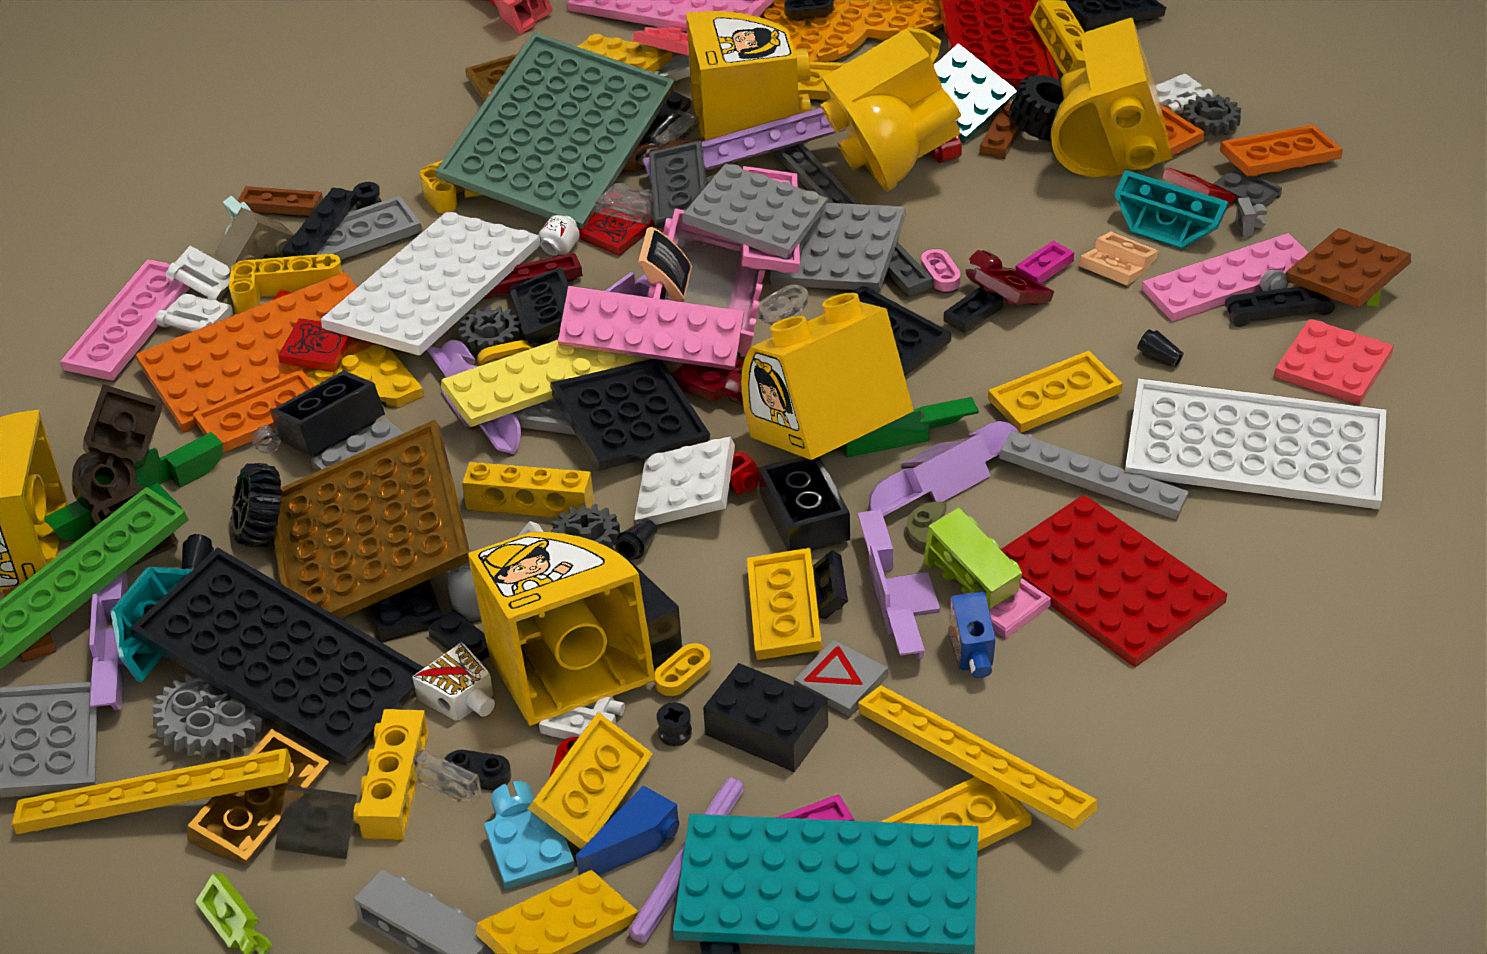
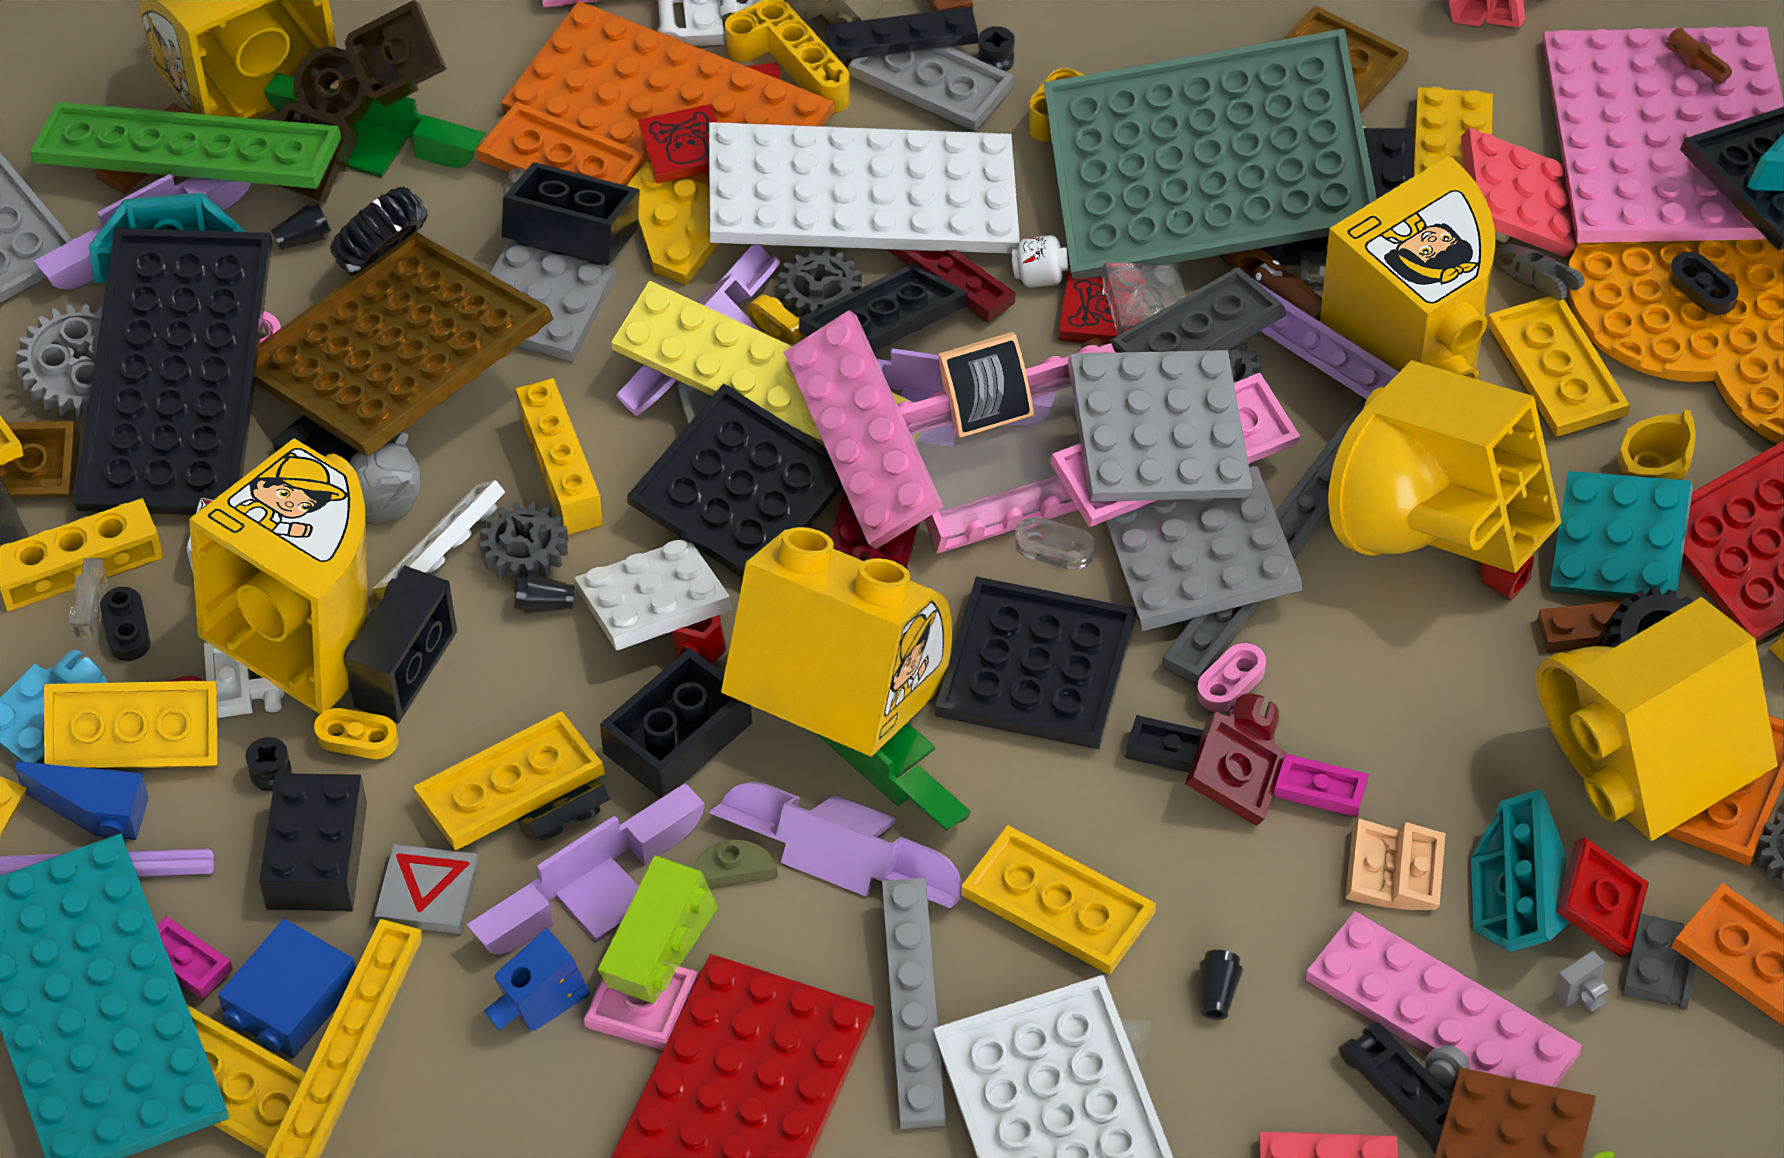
camera: 60 degrees right, 10 degrees up
(882, 771) = (286, 989): none -> blue brick

